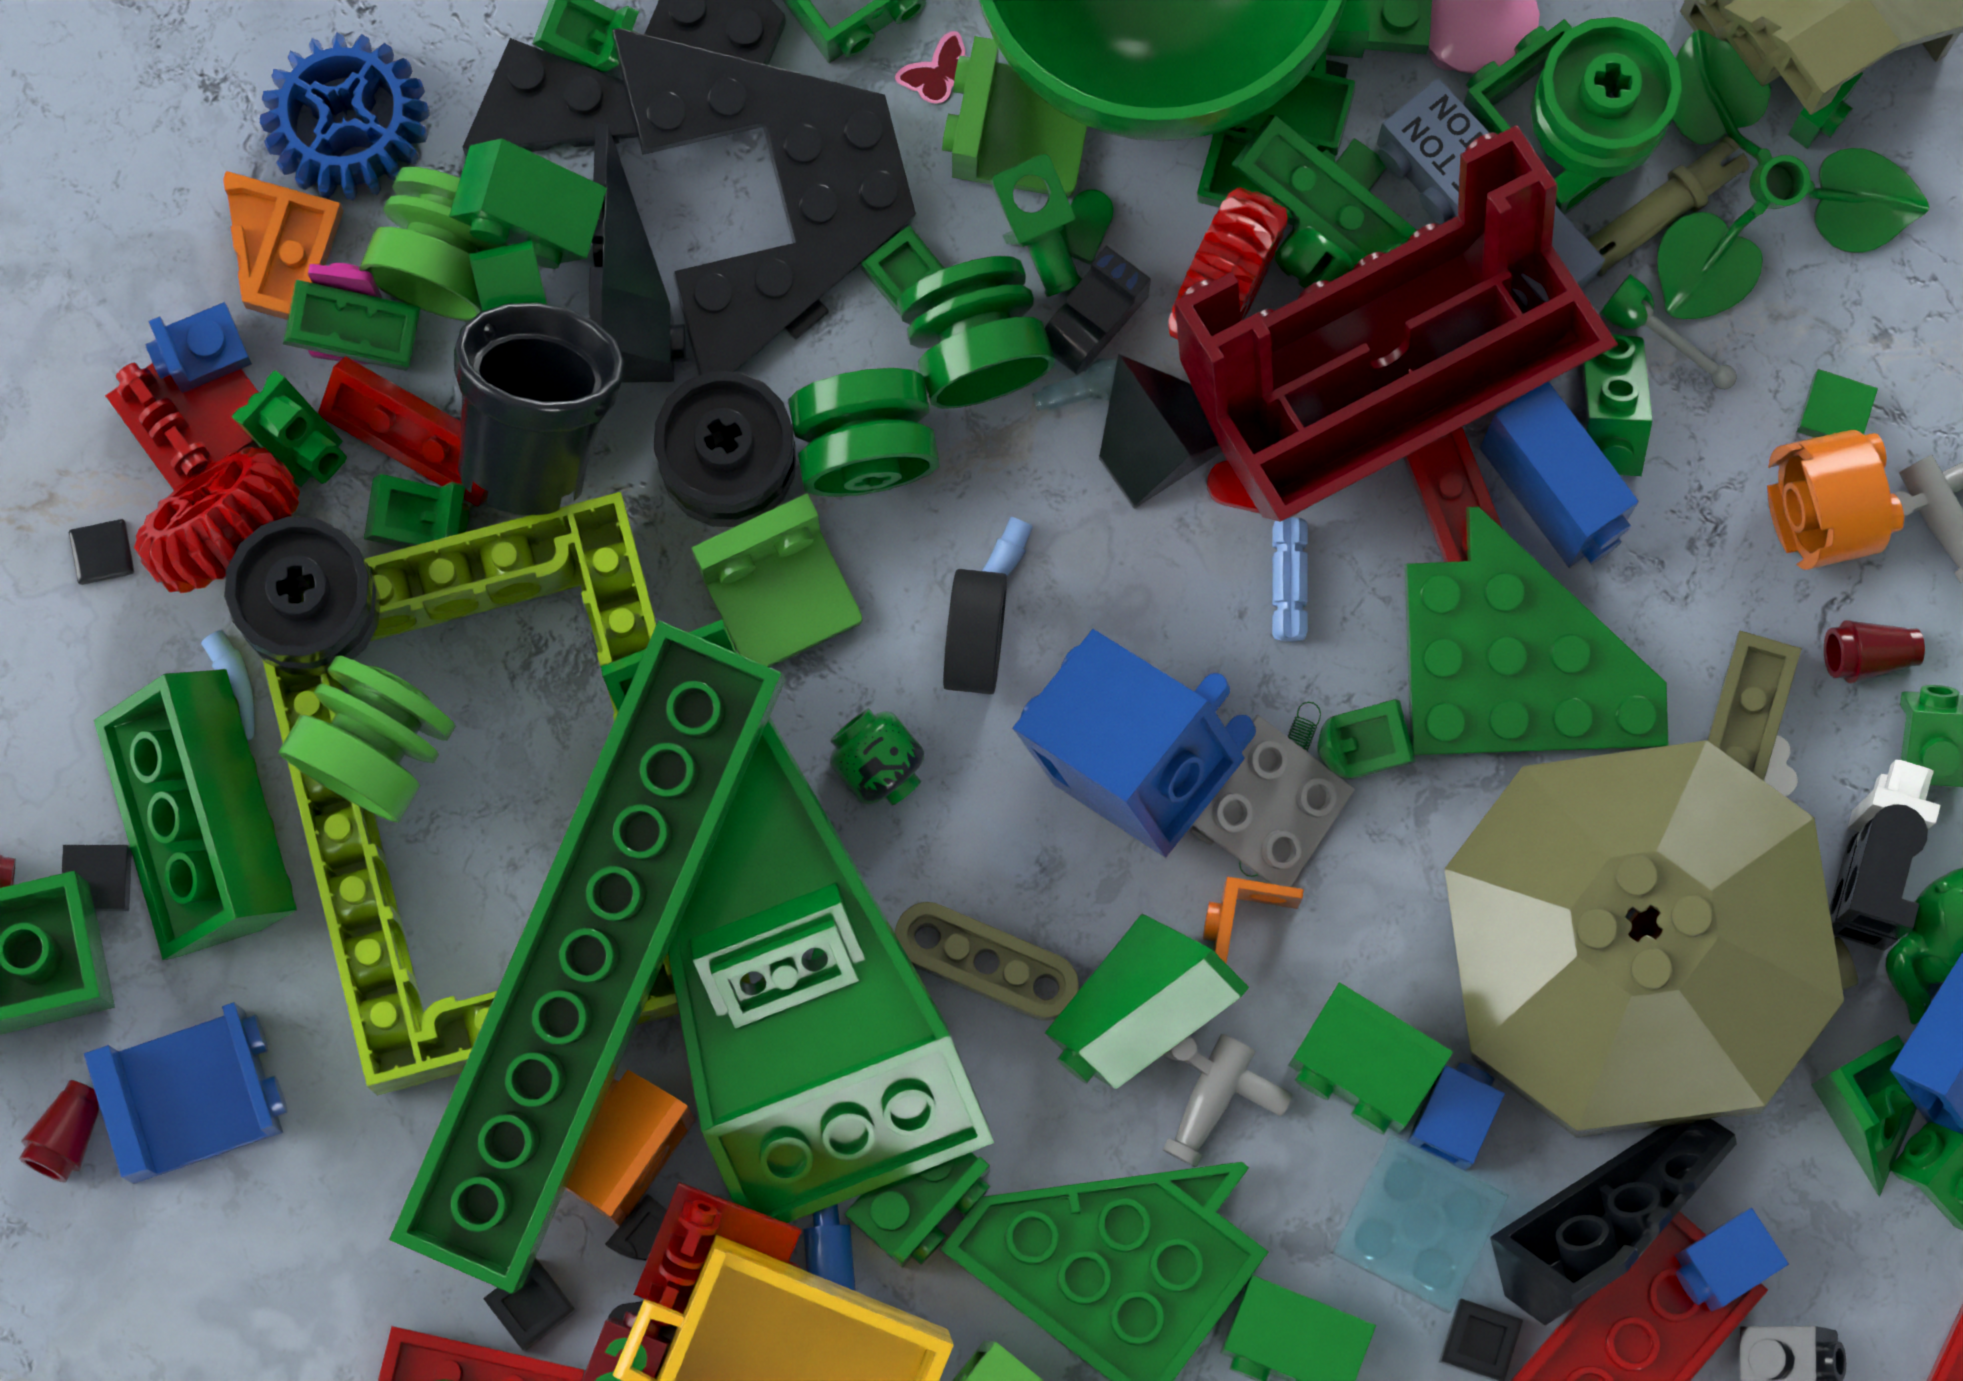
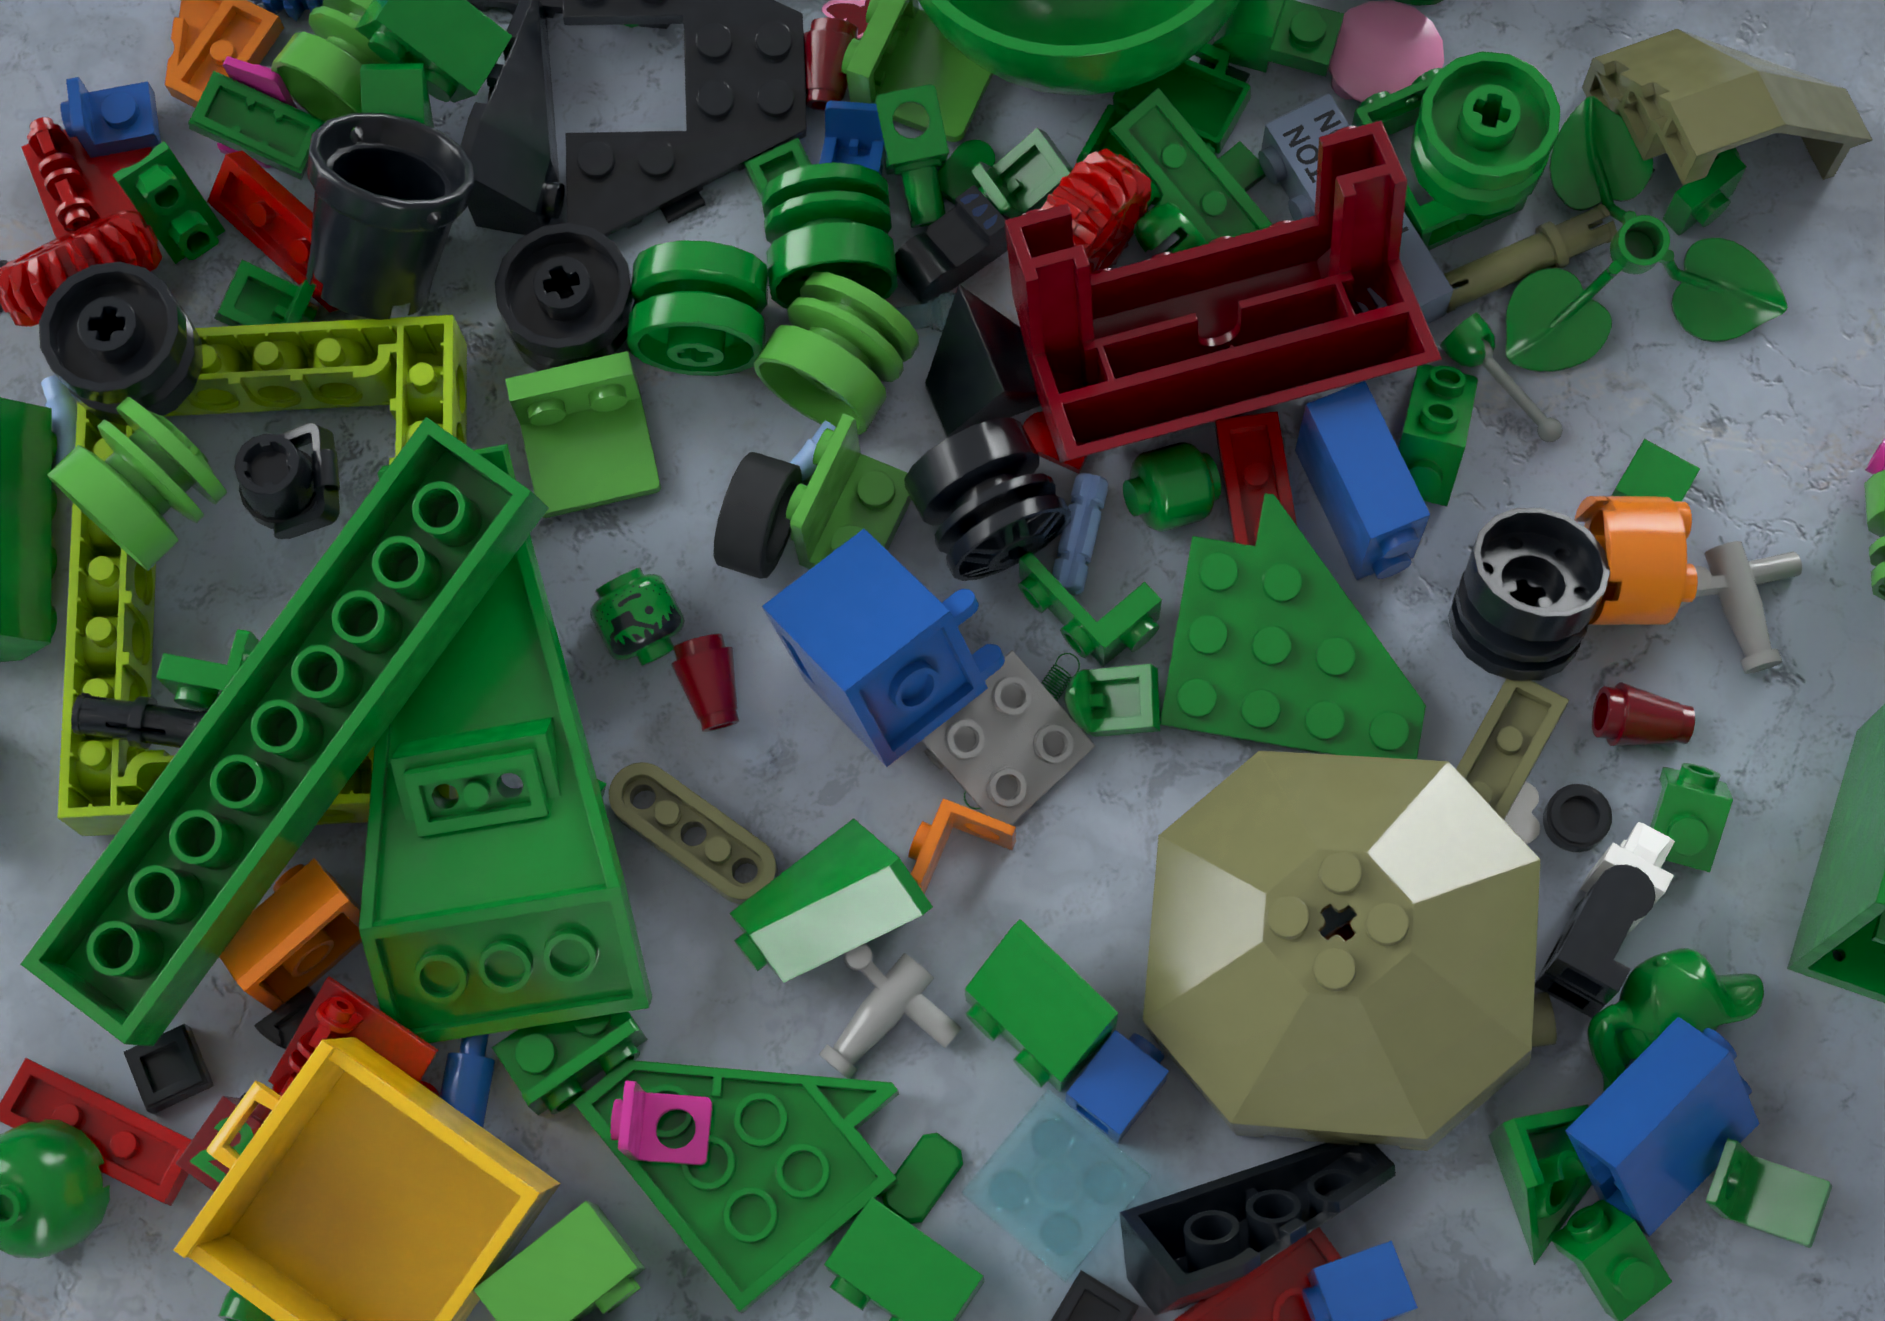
camera: 20 degrees right, 5 degrees down
(429, 974) = (137, 721): none -> black pin
(483, 924) = (200, 682): none -> green bracket
(505, 706) = (287, 486): none -> black piece
(919, 133) = (823, 60): none -> dark red cone
(963, 806) = (708, 680): none -> dark red cone
(968, 221) = (853, 135): none -> blue bracket
(1012, 449) = (836, 351): none -> bright green wheel
(1012, 1260) = (636, 1122): none -> dark pink bracket
(1064, 601) = (845, 497): none -> bright green bracket
(1151, 222) = (1023, 175): none -> bracket
(1192, 562) = (986, 498): none -> black wheel
(1289, 1243) = (923, 1178): none -> green piece
(1361, 663) = (1126, 625): none -> green bracket
(1372, 515) = (1172, 486): none -> green head
(1743, 554) = (1528, 593): none -> black wheel
(1831, 760) = (1577, 818): none -> black tile

